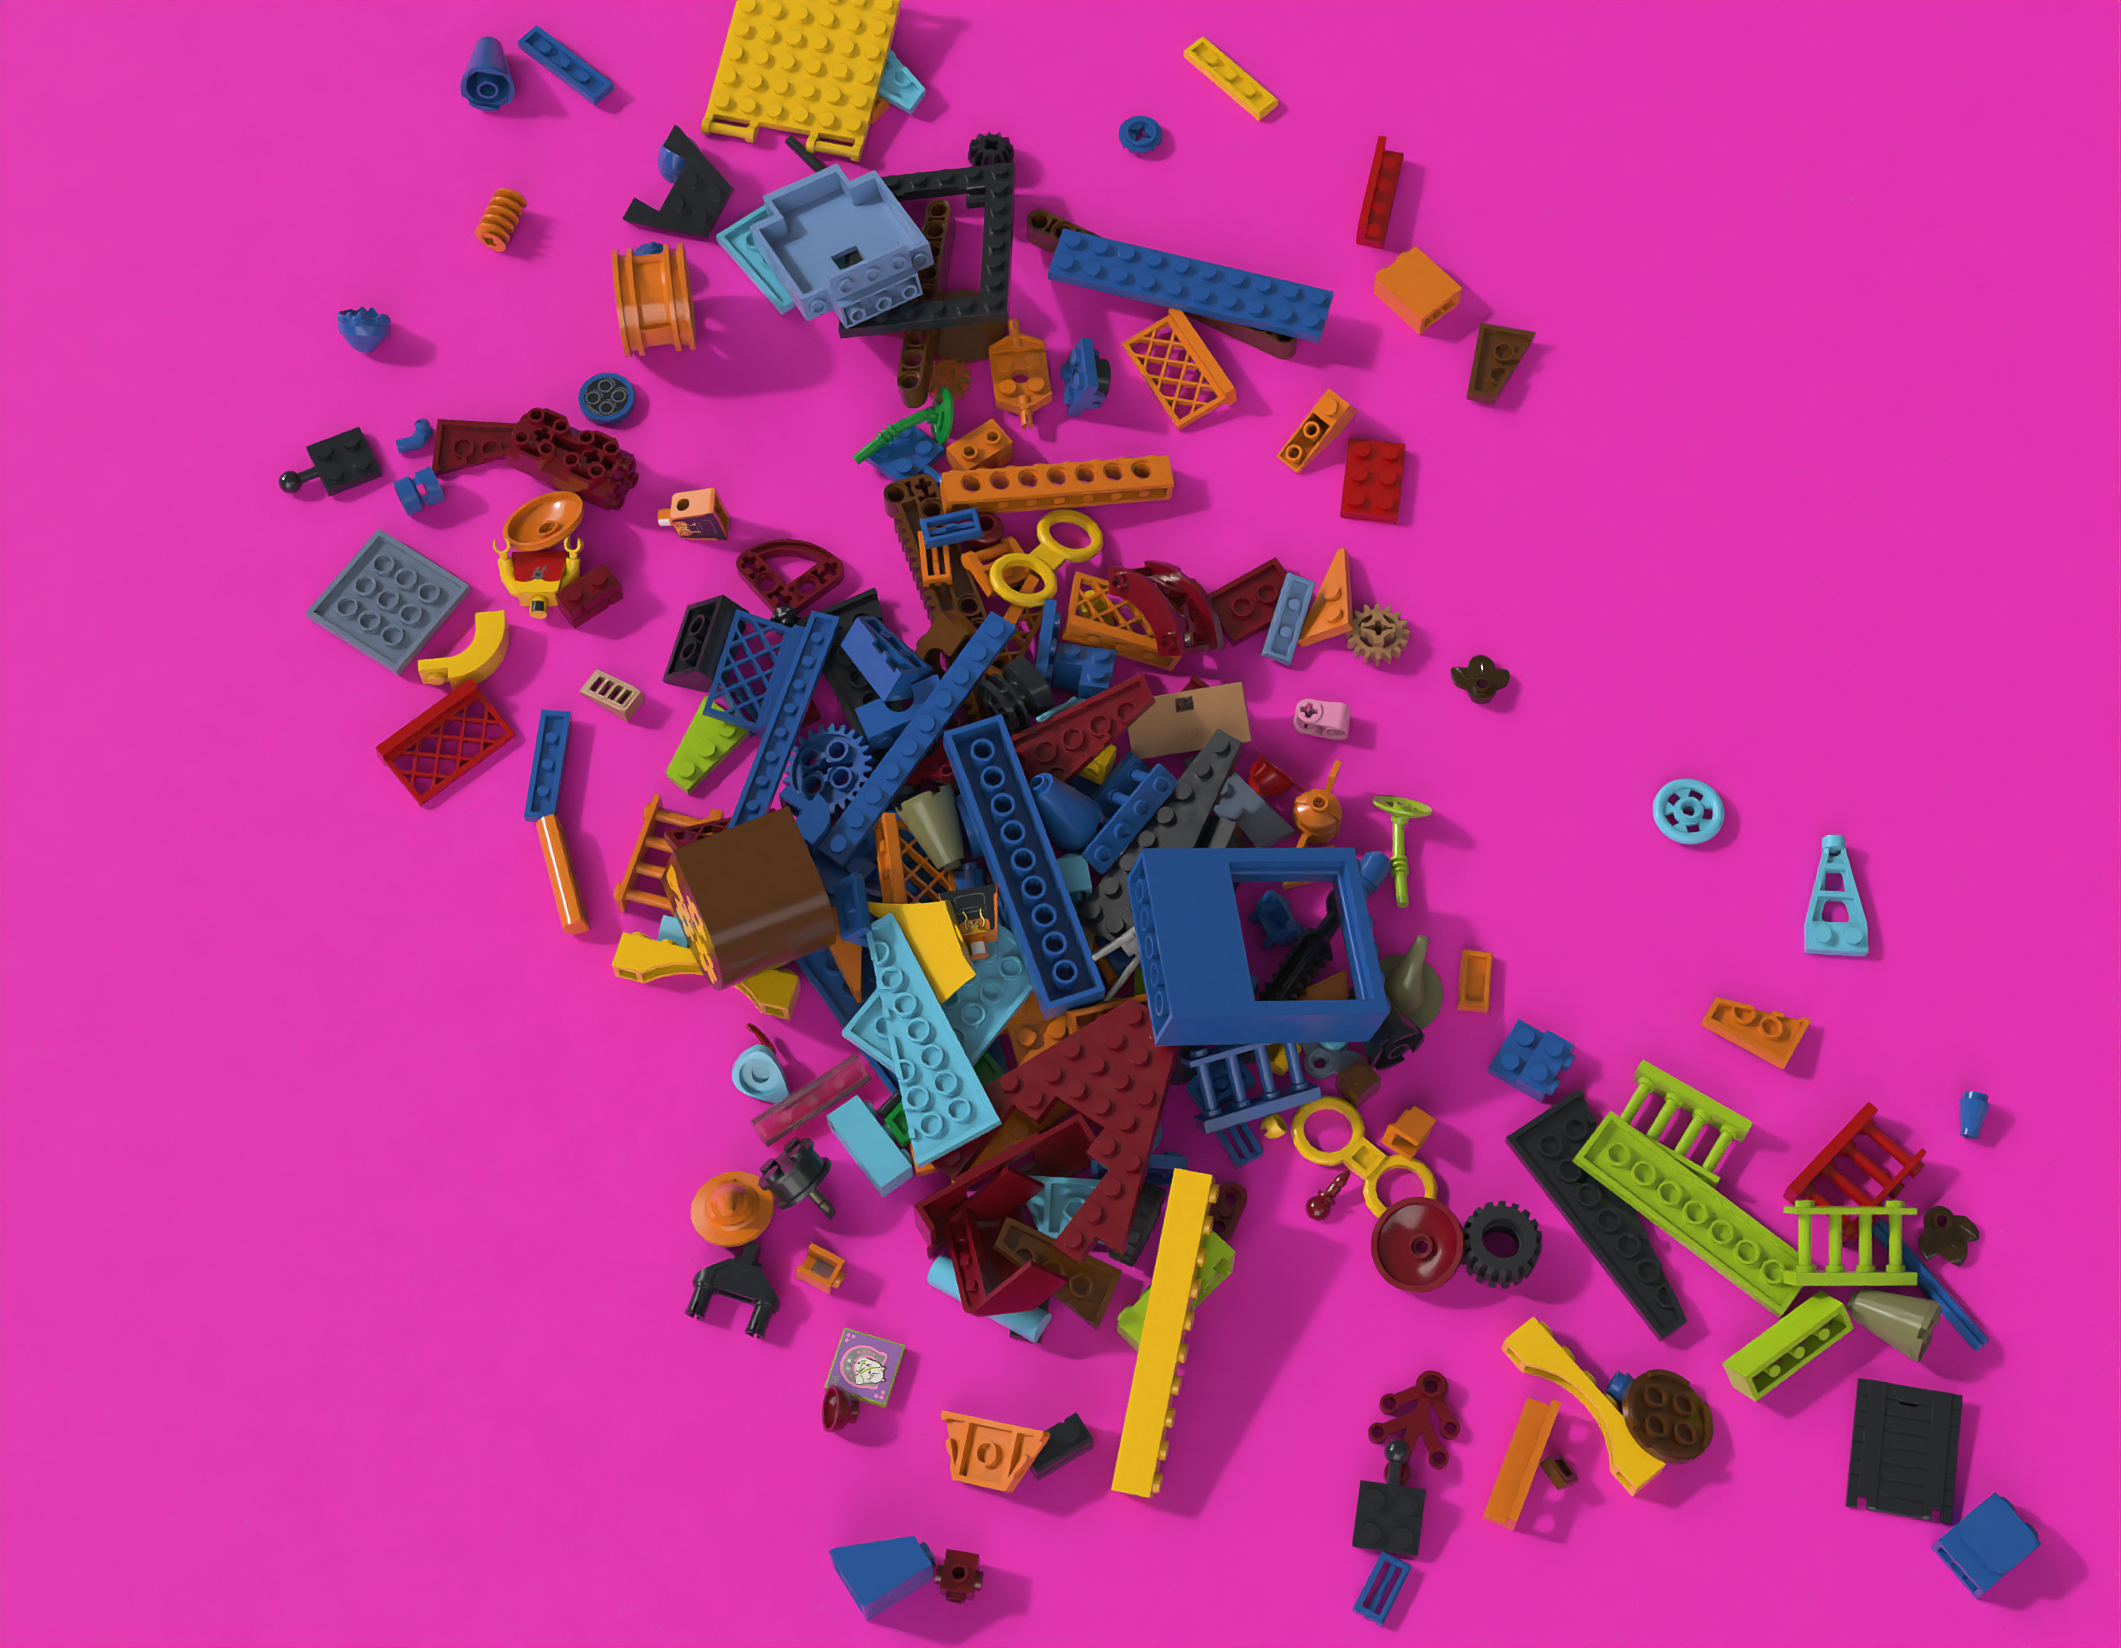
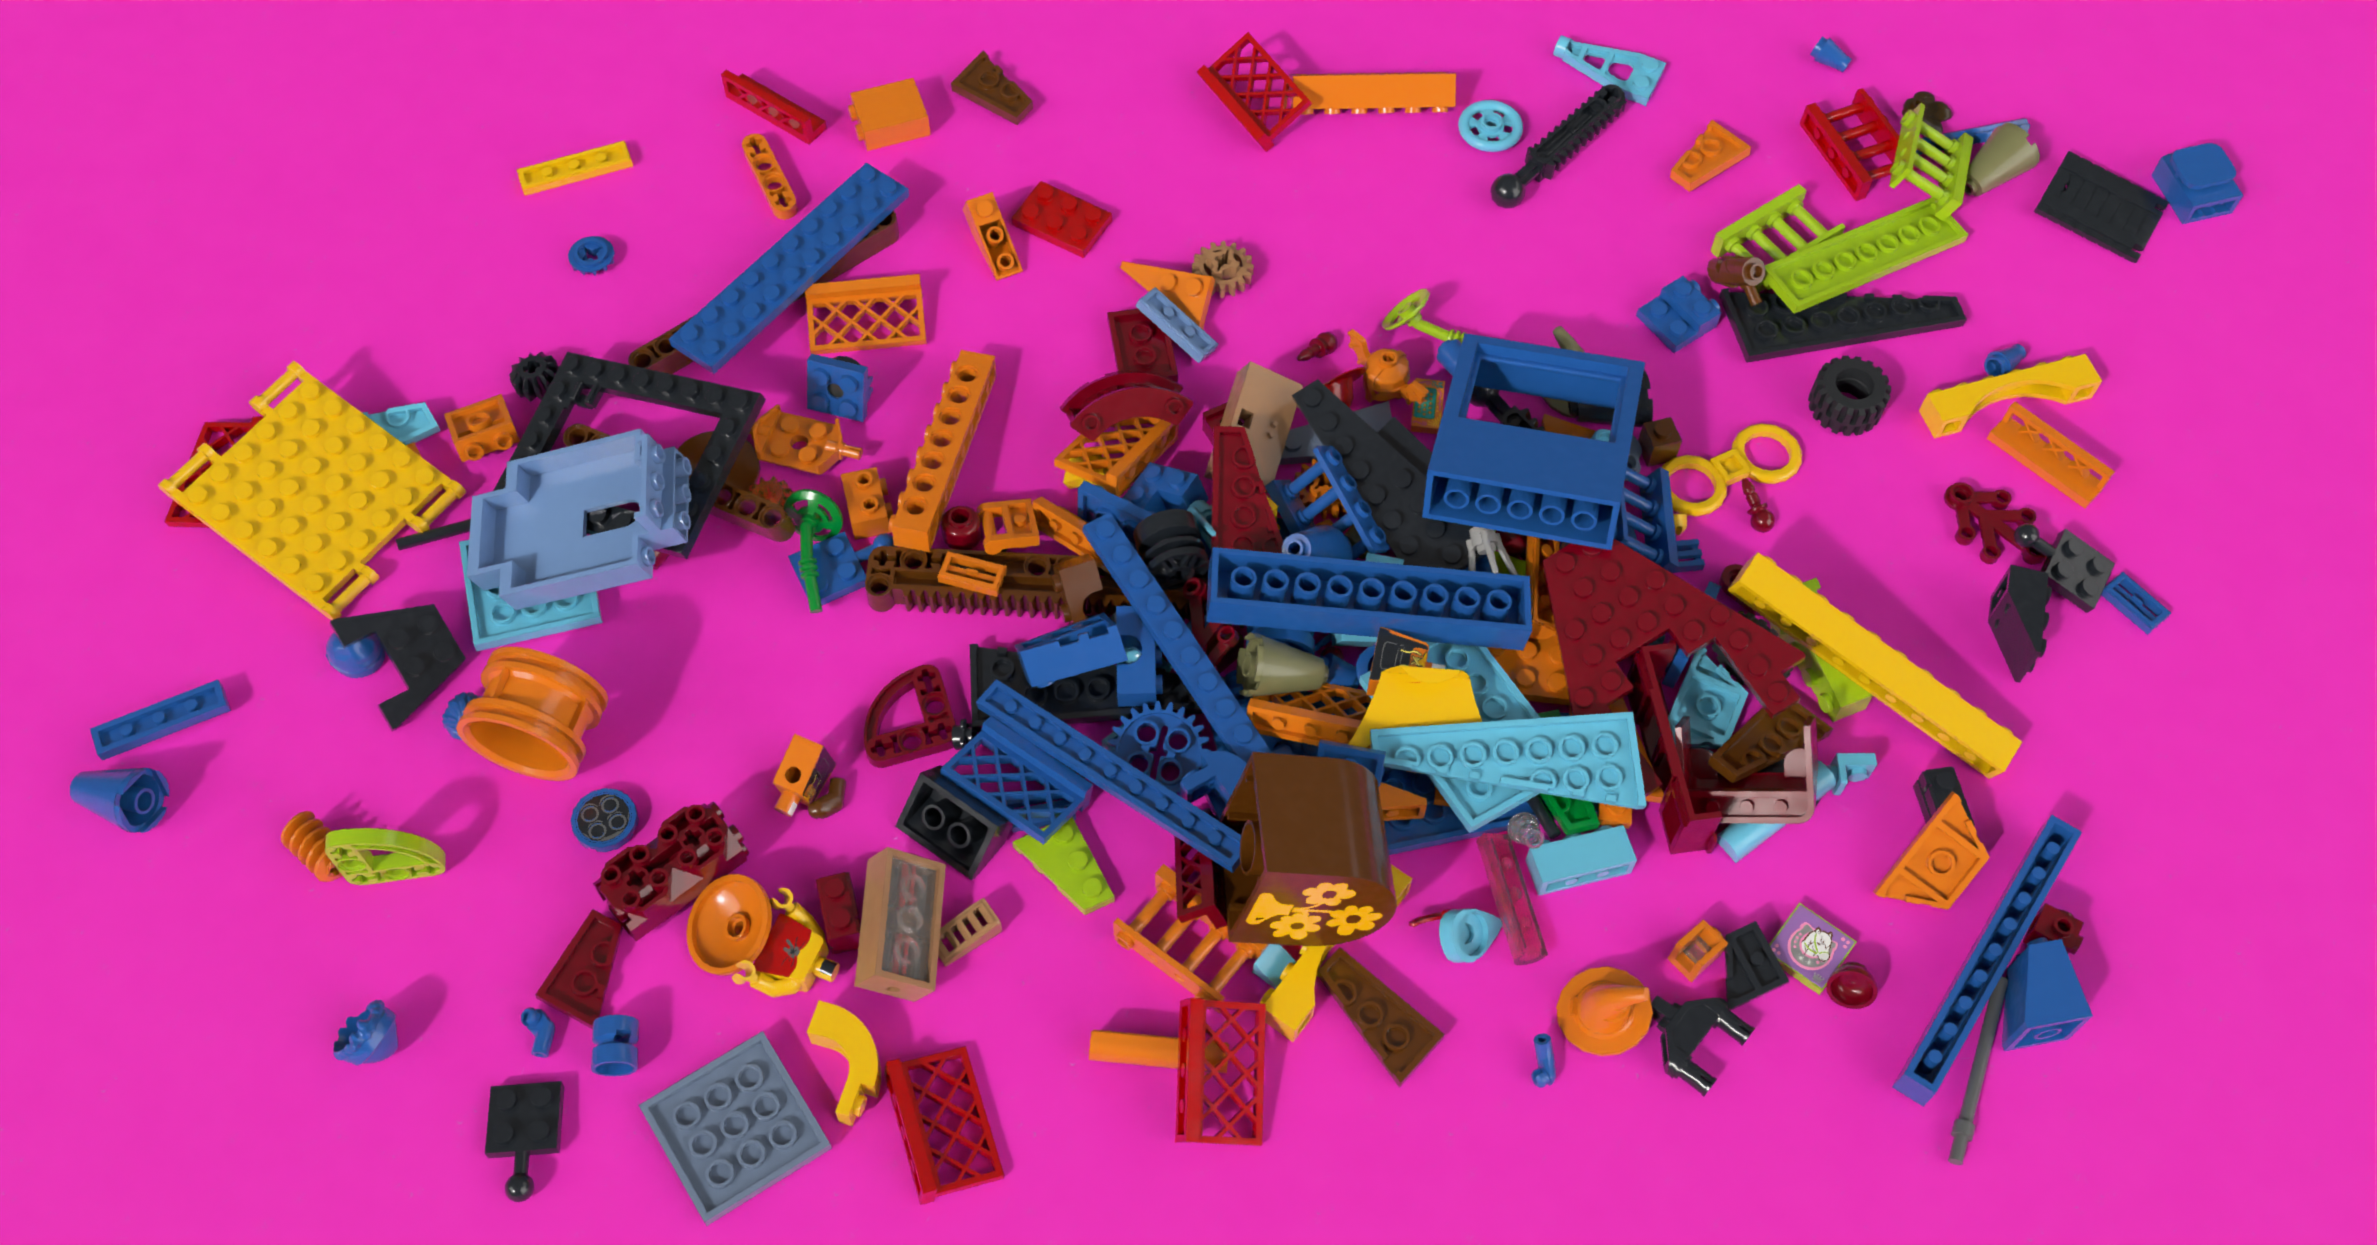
camera: 70 degrees left, 5 degrees down
(502, 262) = (413, 857): none -> lime beam
(548, 764) = (1022, 1024): blue plate -> none
(551, 896) = (1193, 1063): none -> red fence
(590, 639) = (900, 925): none -> brick
(656, 1038) = (1384, 1020): none -> reddish brown wing
(669, 1176) = (1546, 1063): none -> blue arm
(688, 550) = (831, 802): none -> reddish brown arm
(738, 1542) = (1963, 1128): none -> dark grey bar
(797, 1175) = (1598, 931): black wheel -> none
(823, 1318) = (1750, 966): none -> black wing
(873, 1087) = (1525, 830): none -> clear cone
(905, 1517) = (1986, 961): none -> blue brick
(921, 140) = (481, 428): none -> orange plate
(952, 532) = (949, 566): blue tile -> none
(1046, 558) = (1021, 484): yellow bar -> none
(1065, 1356) = (1851, 767): none -> medium azure bracket
(1300, 229) = (769, 176): none -> orange beam
(1300, 1464) = (2020, 617): none -> slope
(1325, 720) = (1288, 340): bright pink piece -> none
(1331, 750) = (1318, 347): none -> dark red bar
(1399, 1237) = (1852, 446): dark red dish -> none
(1409, 1132) = (1719, 418): orange window -> none
(1475, 981) = (1588, 328): orange tile -> none
(1480, 679) = (1299, 216): dark brown plate -> none
(1559, 1471) = (2071, 432): reddish brown tile -> none
(1586, 570) = (1241, 109): none -> red fence
(1596, 1097) = (1738, 271): none -> reddish brown piece
(1667, 1417) = (2040, 339): reddish brown tile -> none
(1673, 686) = (1376, 90): none -> orange slope
(1695, 883) = (1560, 144): none -> black gear
(1788, 1345) = (1999, 239): lime brick -> none

